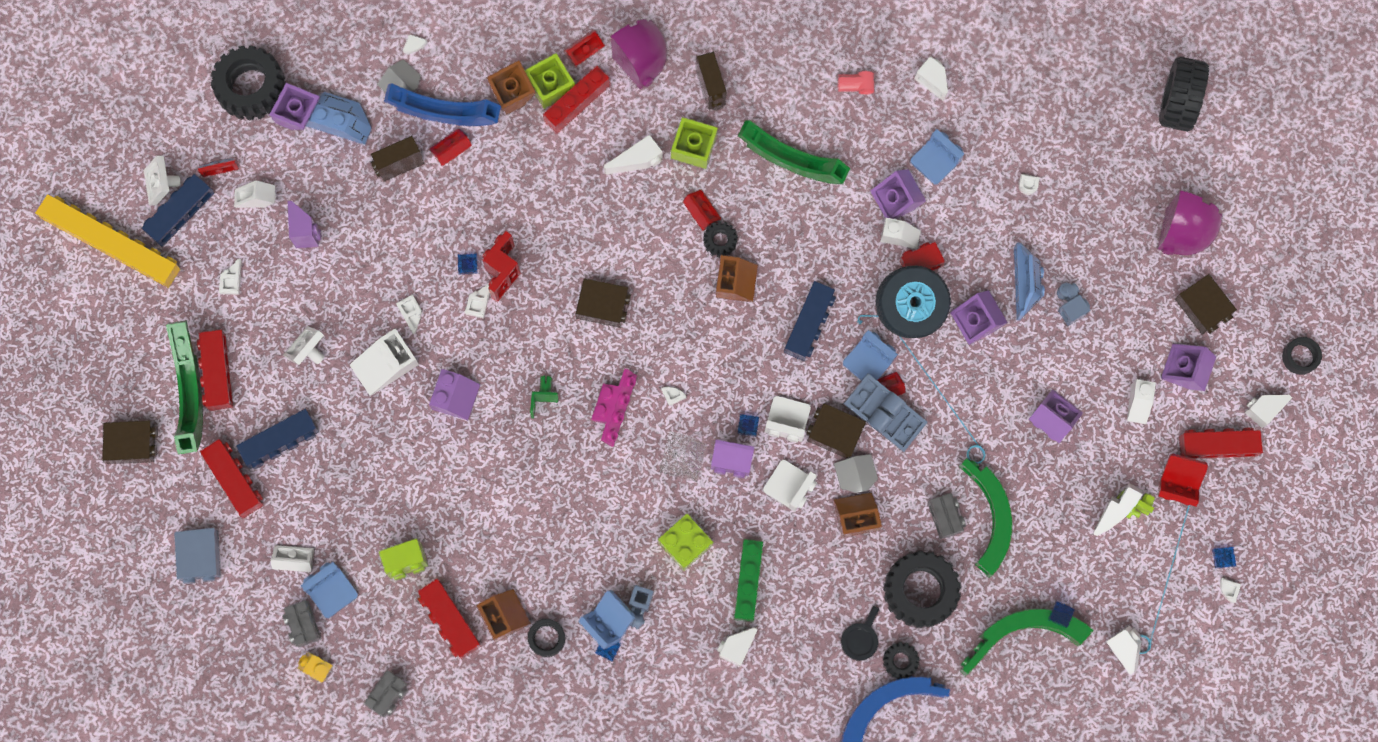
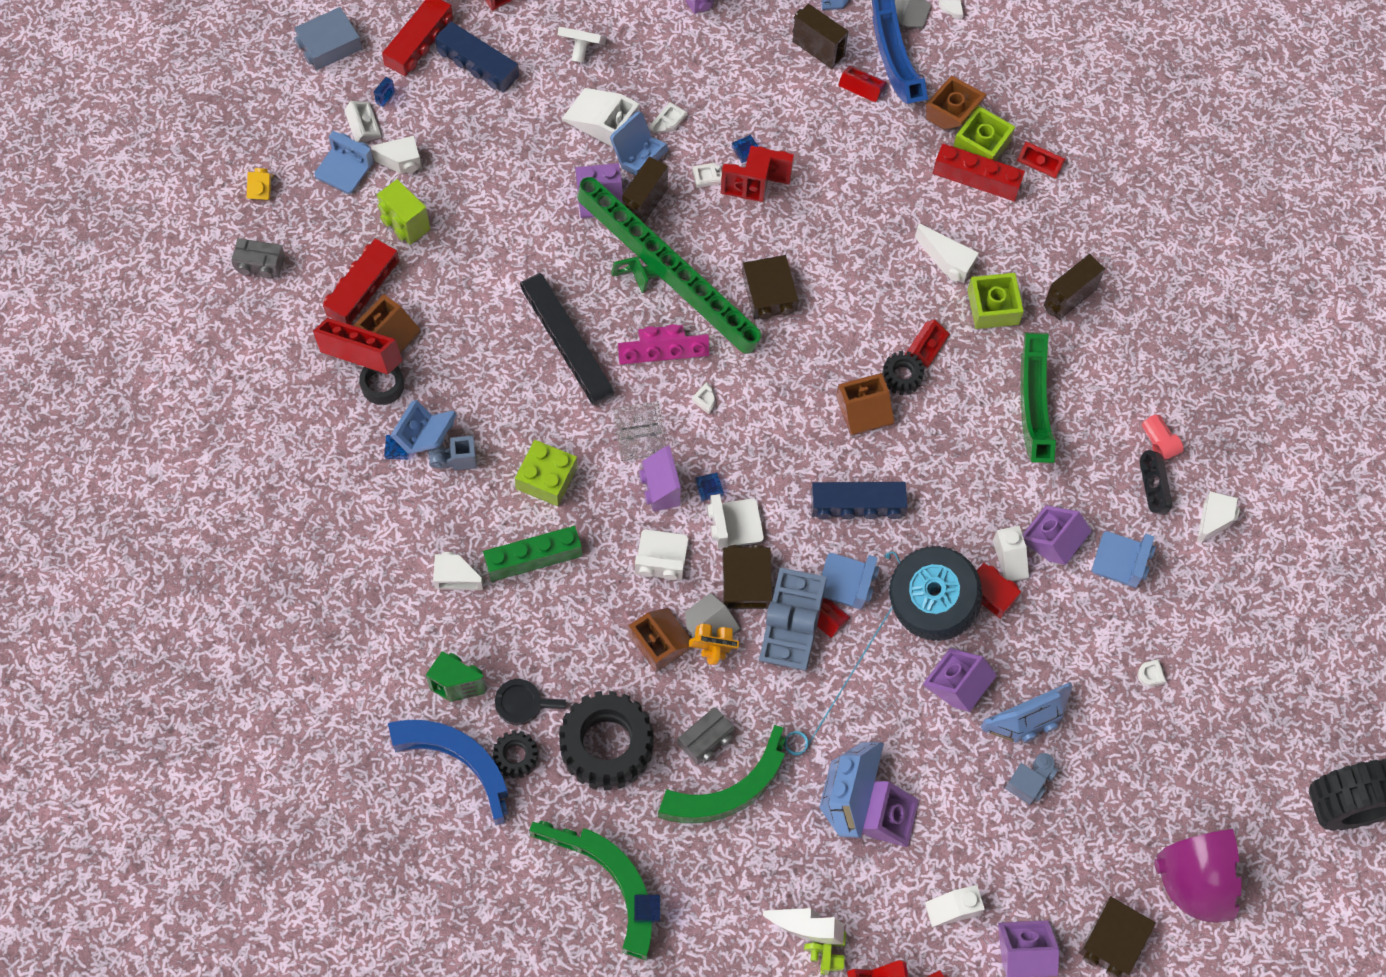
camera: 65 degrees right, 10 degrees down
(274, 528) = (384, 91): none -> clear blue tile
(301, 623) = (298, 154): flat silver brick -> none
(343, 540) = (398, 155): none -> white slope
(430, 347) = (635, 144): none -> medium blue bracket
(477, 360) = (646, 188): none -> dark brown brick
(513, 644) = (357, 345): none -> red brick
(544, 378) = (670, 274): none -> green beam
(574, 477) = (567, 339): none -> black beam
(640, 51) = (1069, 206): magenta brick -> none
(828, 682) = (453, 679): none -> green slope
(875, 484) = (713, 647): none -> light orange hips
(887, 98) = (1162, 490): none -> black beam
(1028, 432) = (850, 788): none -> medium blue wedge

